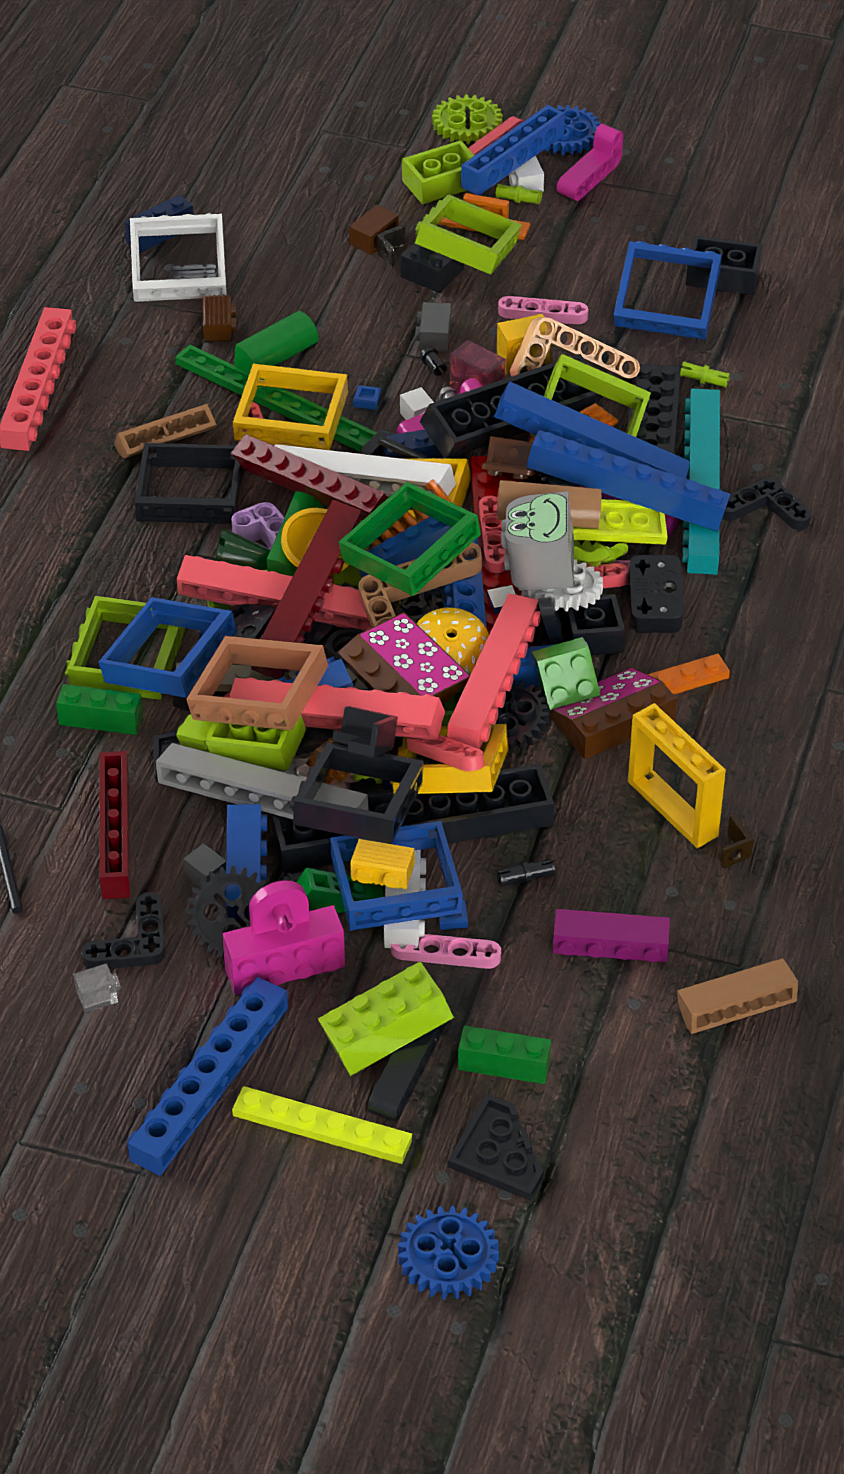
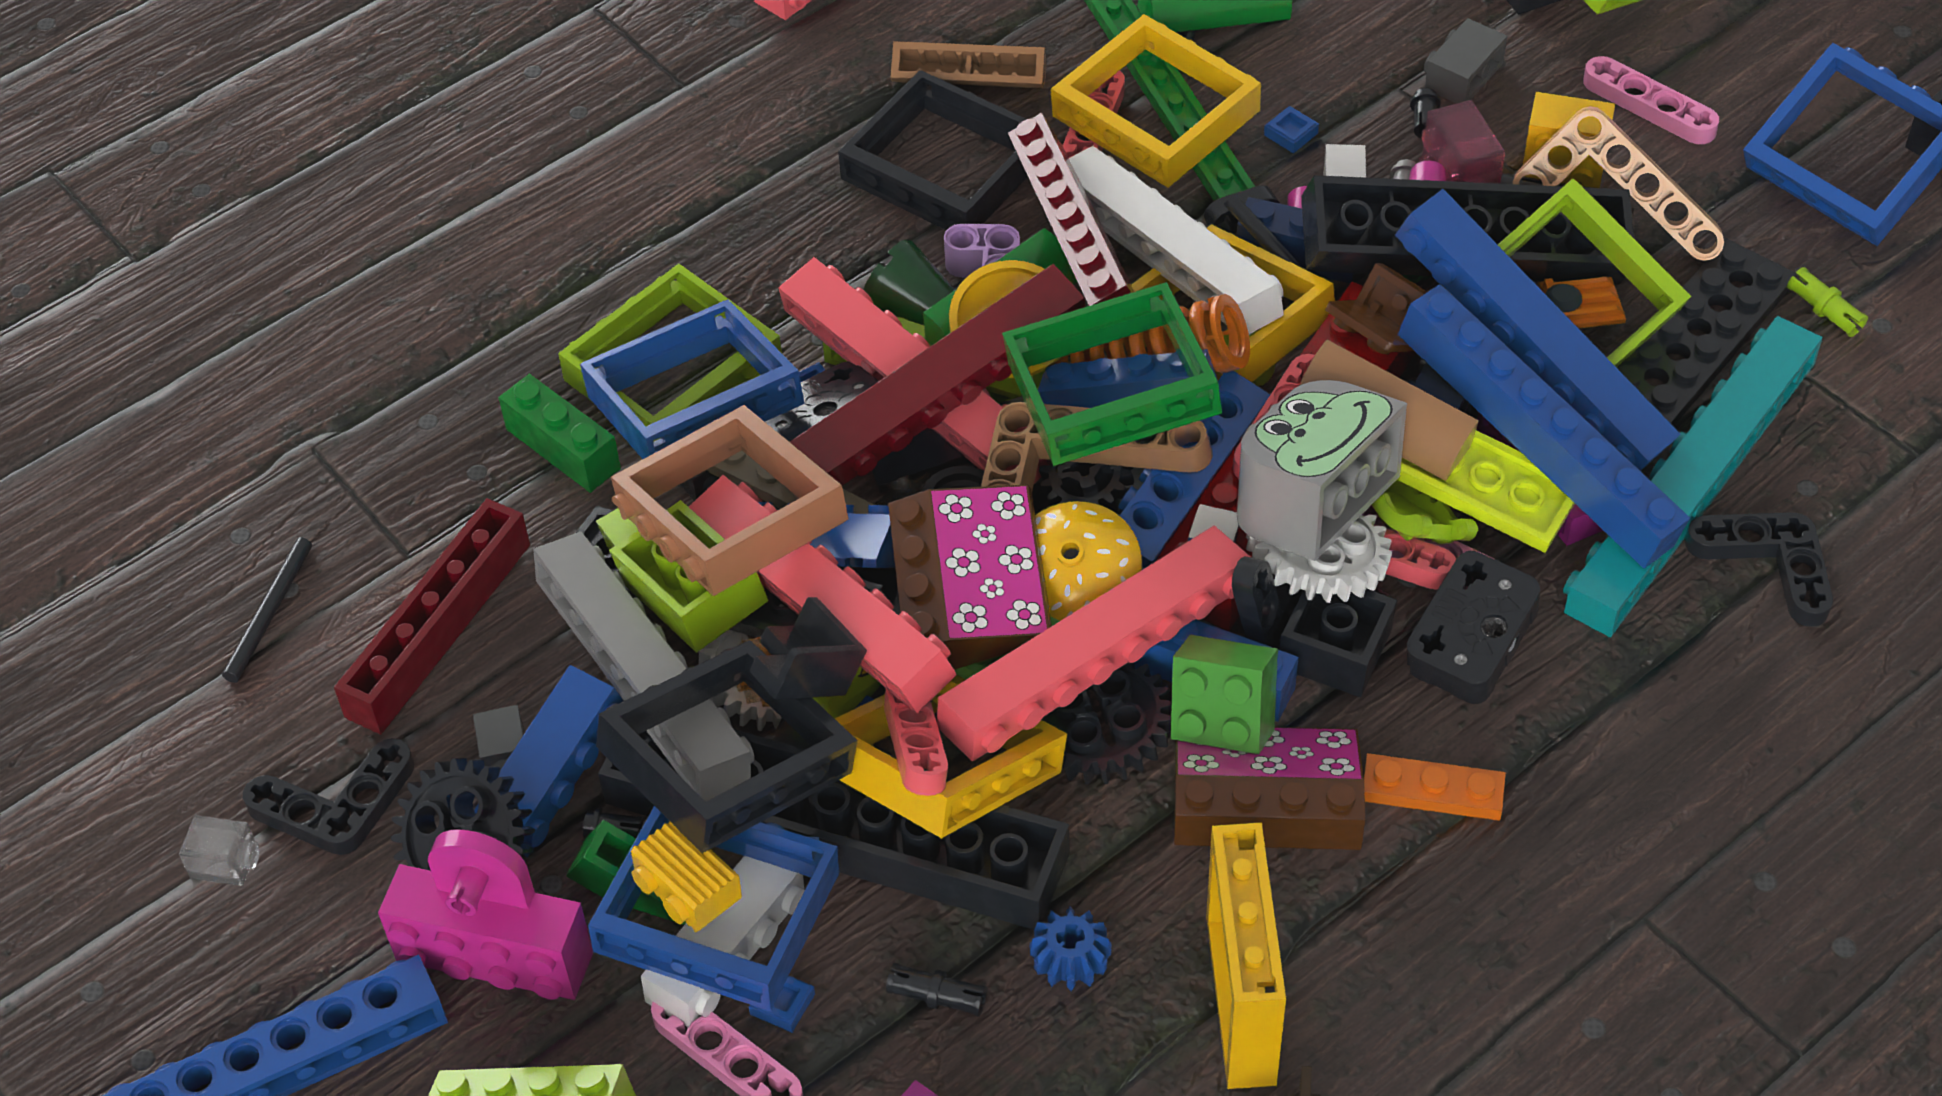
camera: 35 degrees right, 5 degrees up
(577, 823) = (1086, 958): none -> blue gear

